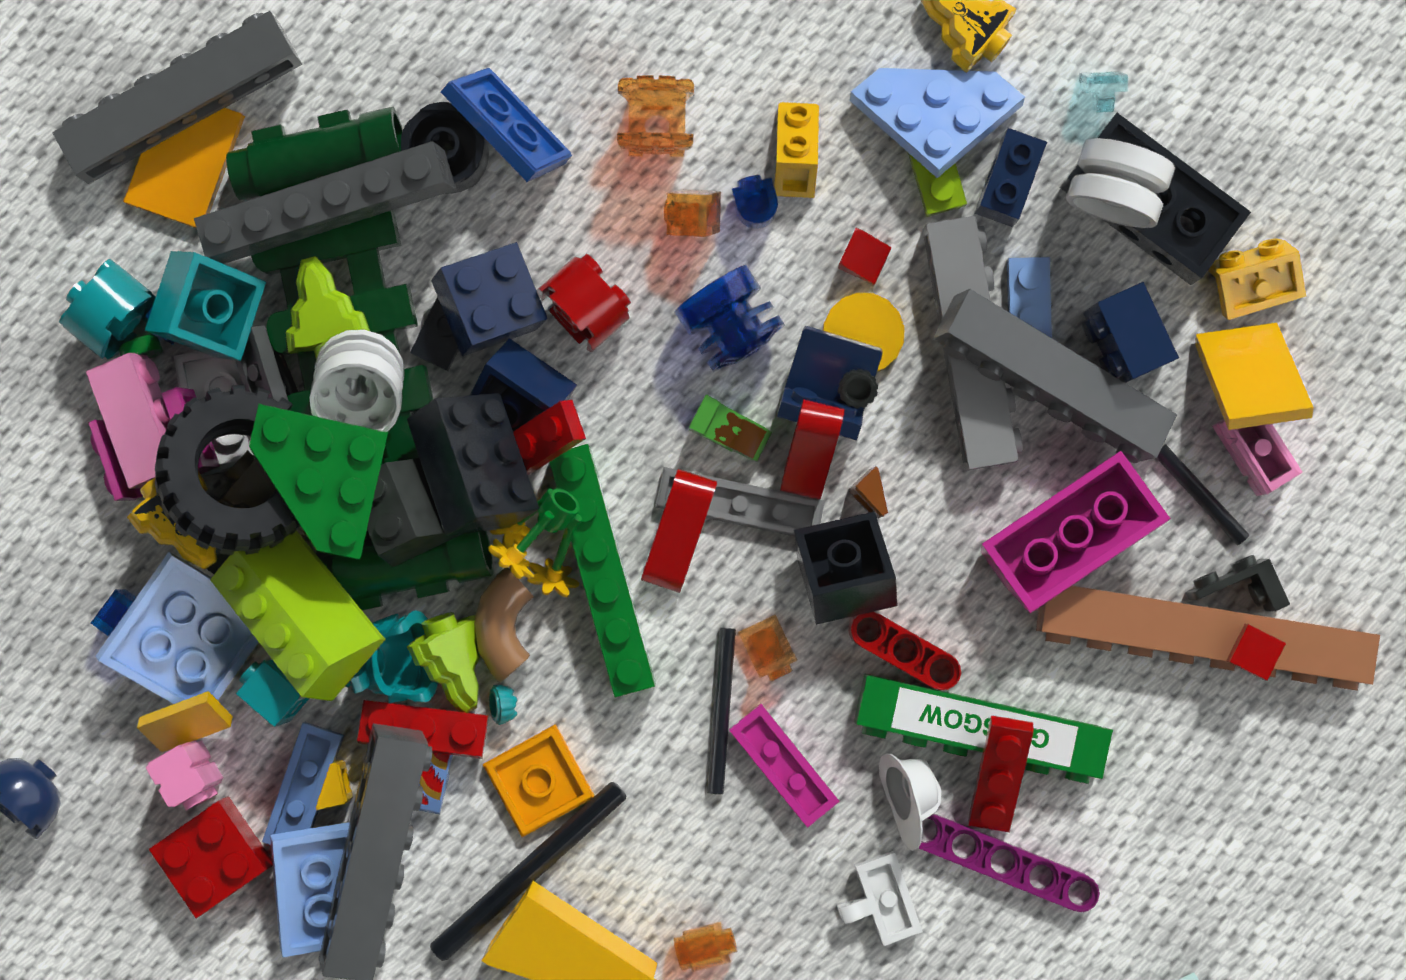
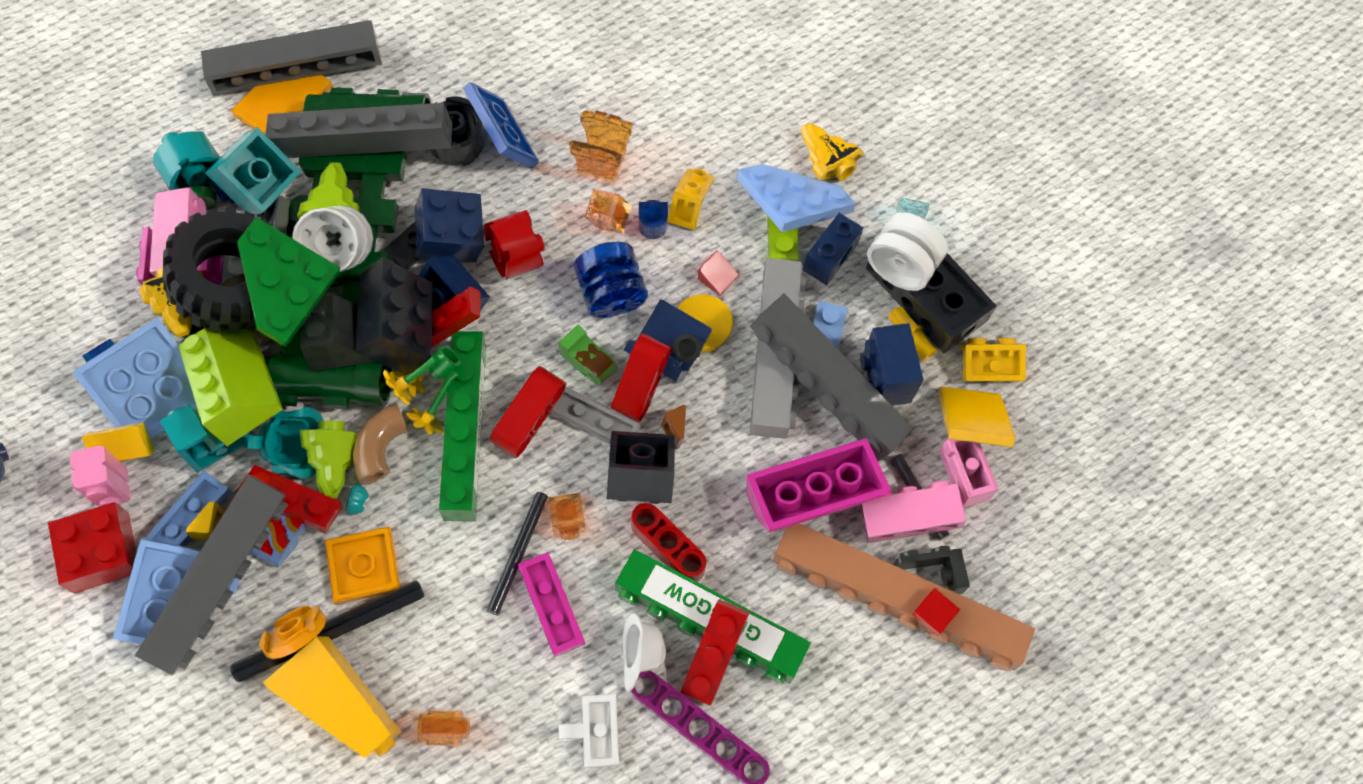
camera: 10 degrees right, 20 degrees down
(492, 891) = (292, 631): none -> light orange tile
(1142, 269) = (923, 346): none -> yellow axle
(1203, 526) = (914, 512): none -> bright pink brick

